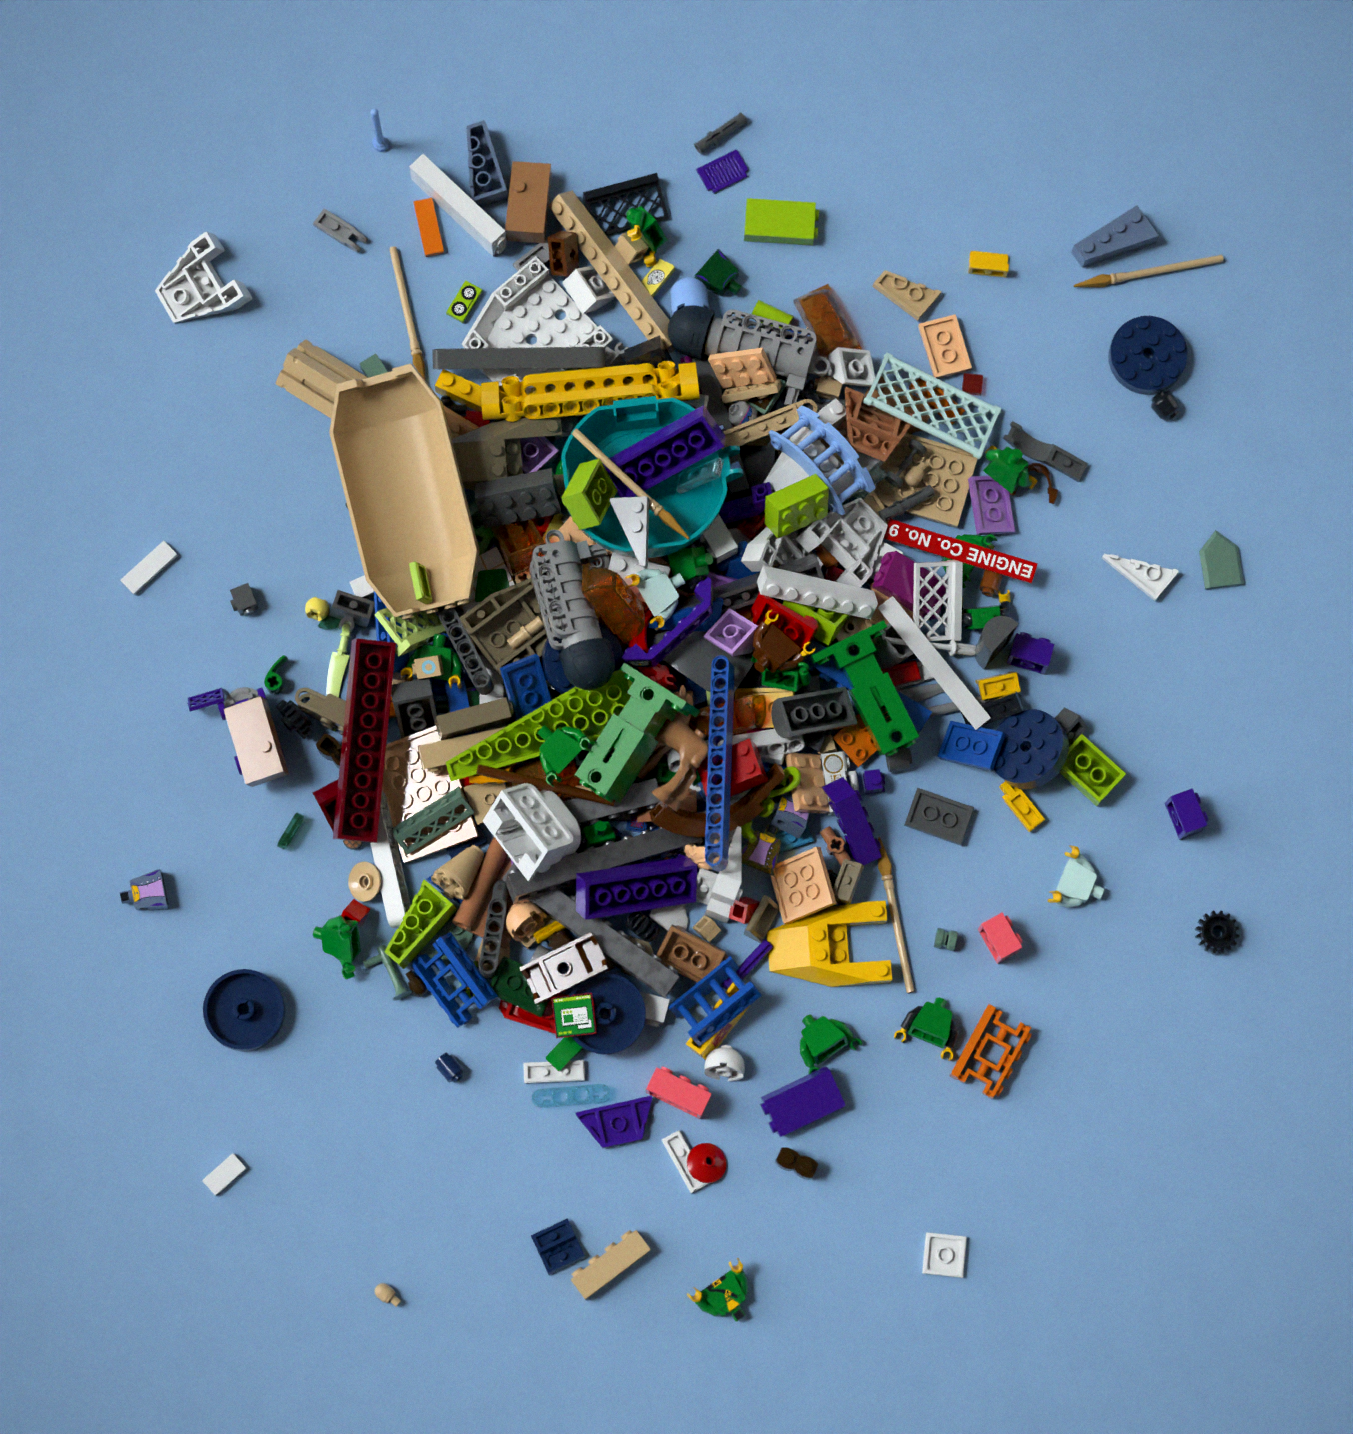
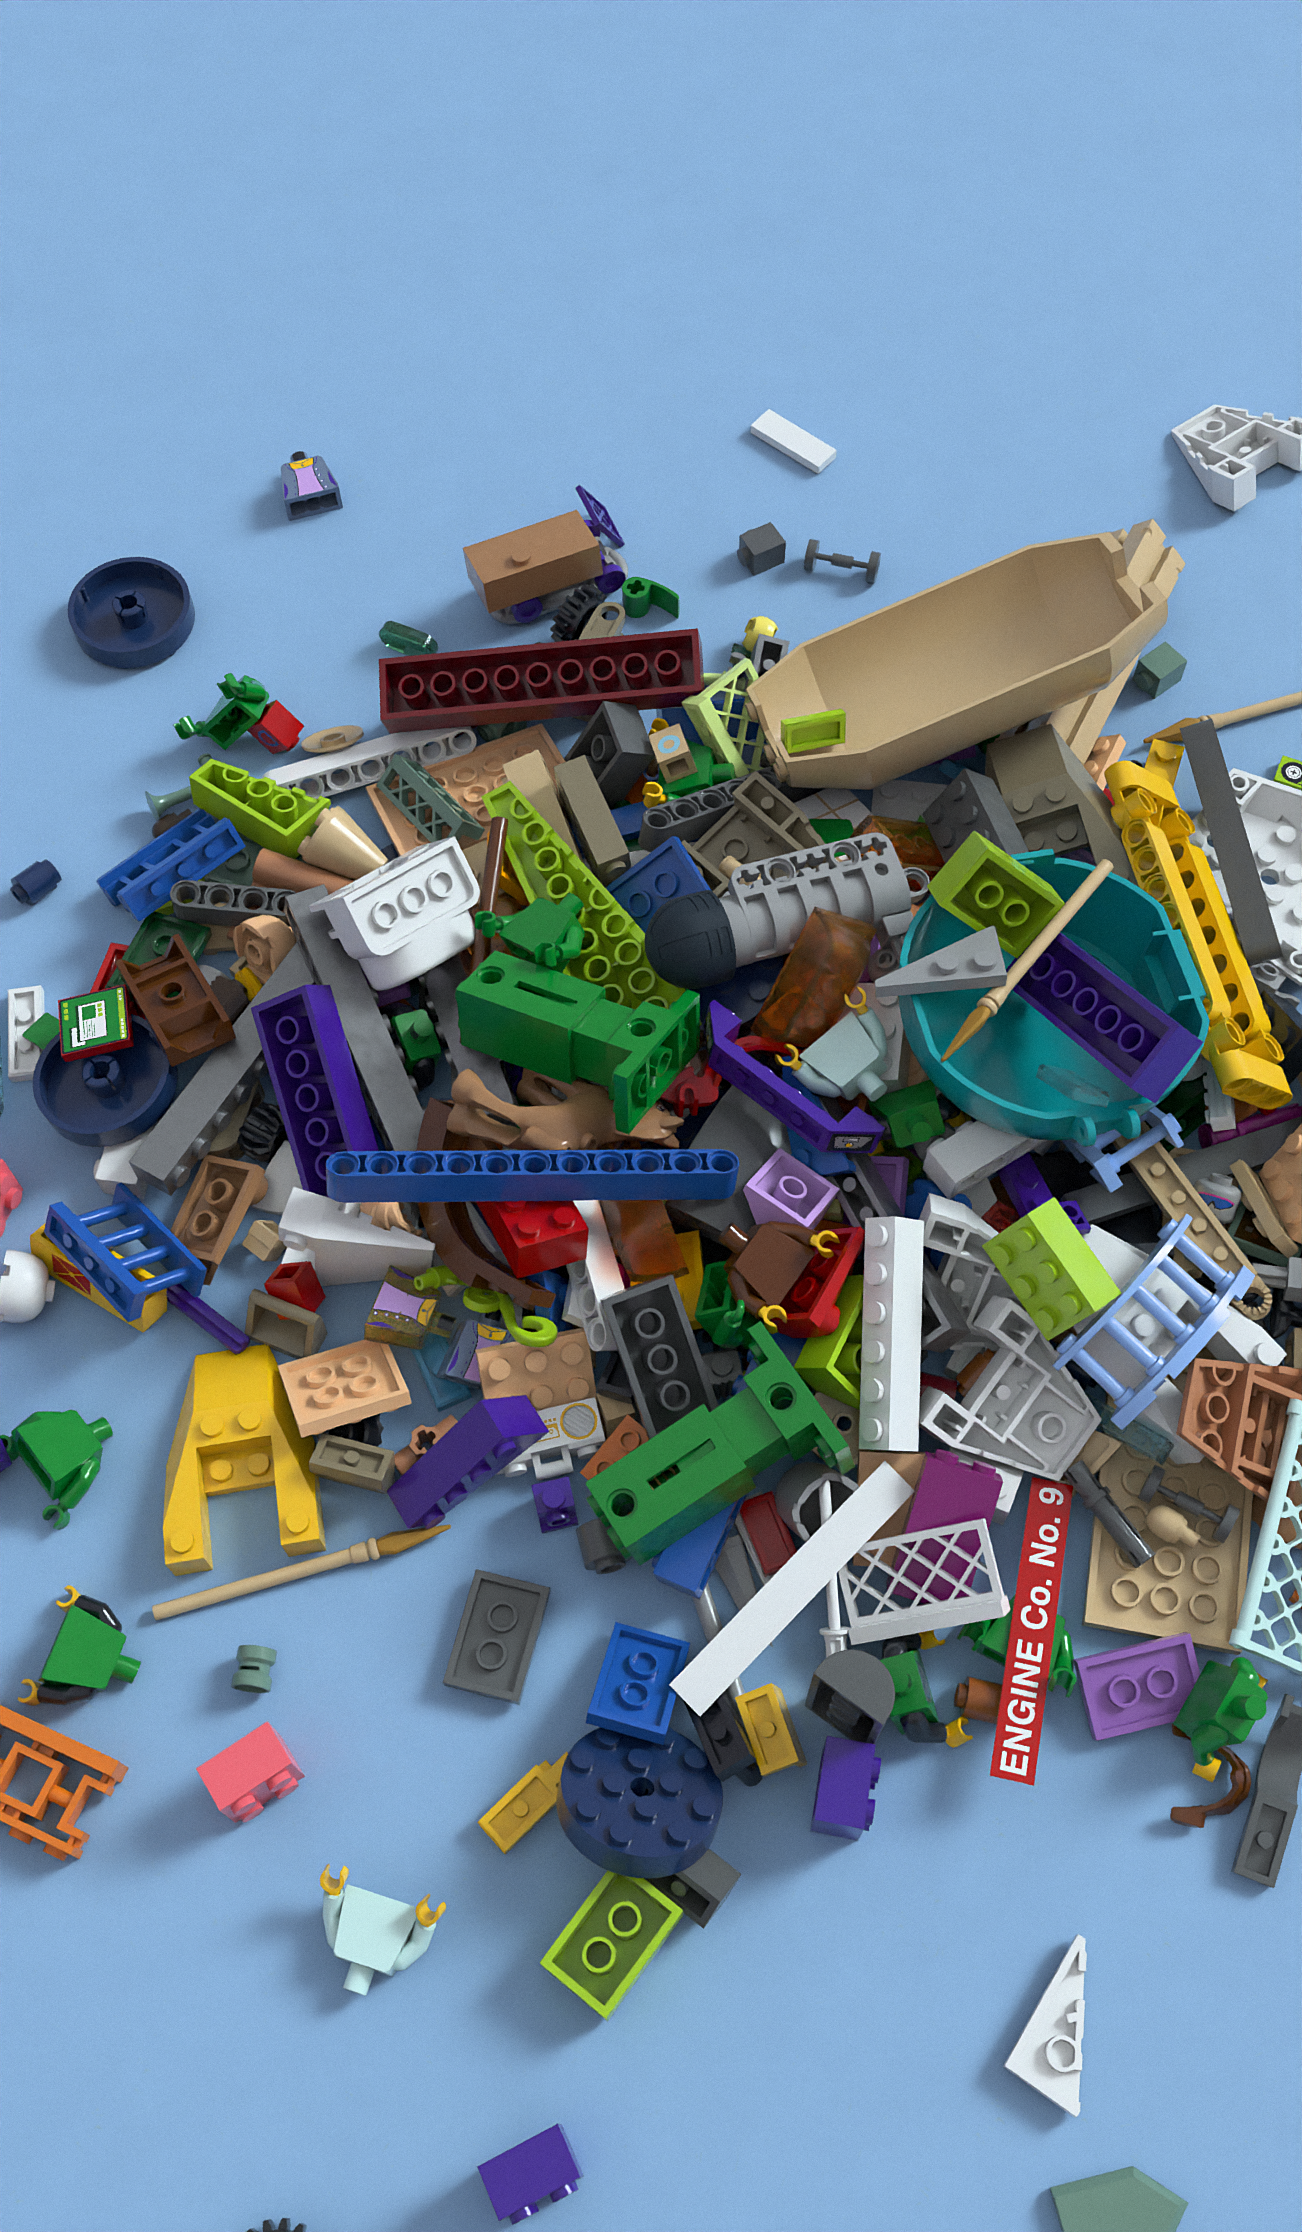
camera: 90 degrees right, 15 degrees down
(268, 532) = (842, 560): none -> dark grey wheel

